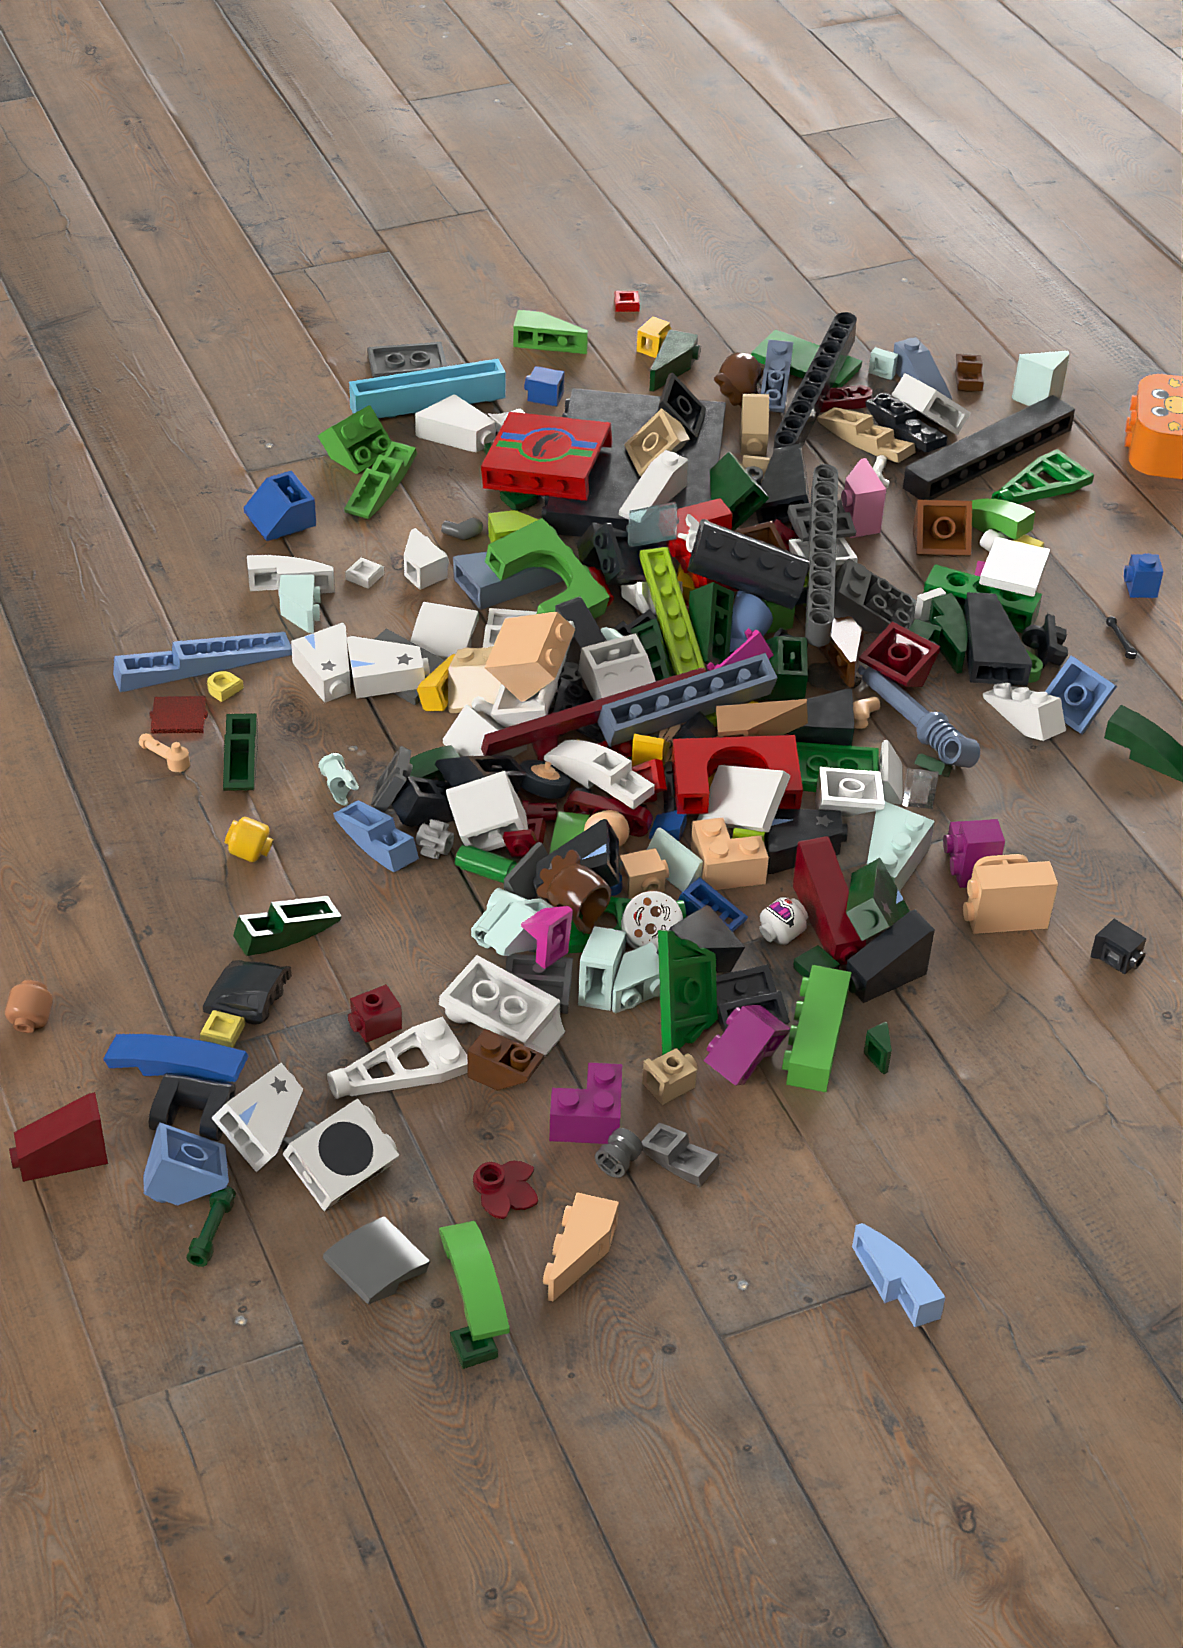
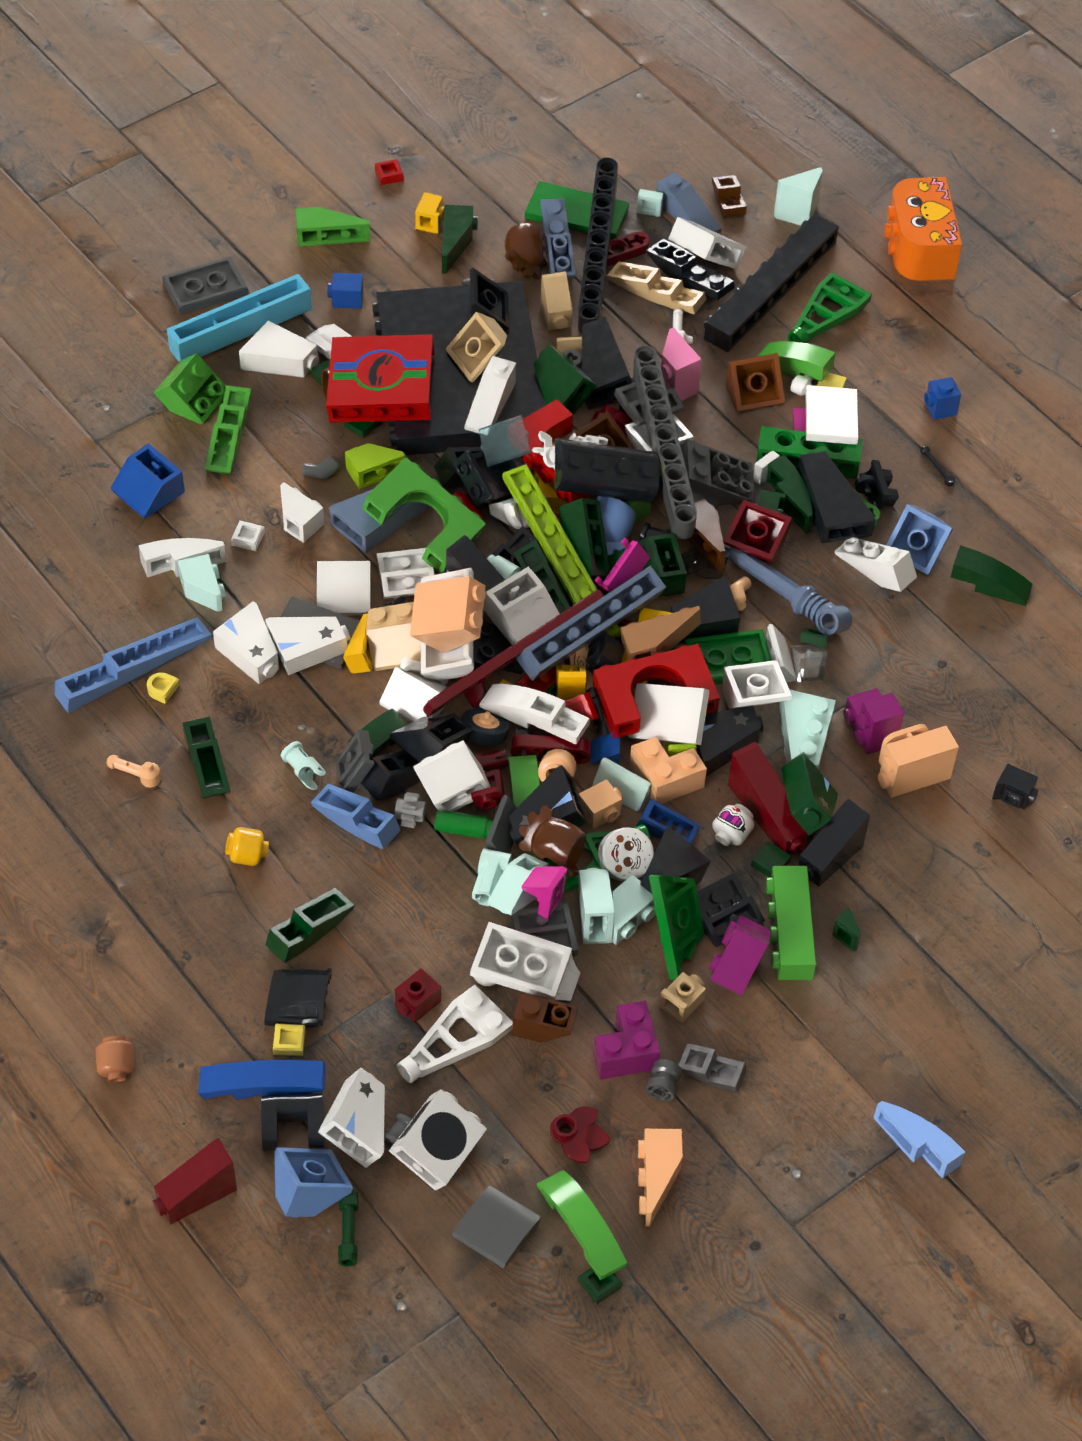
camera: 15 degrees left, 10 degrees up
(178, 714) = (131, 726): clear red piece -> none

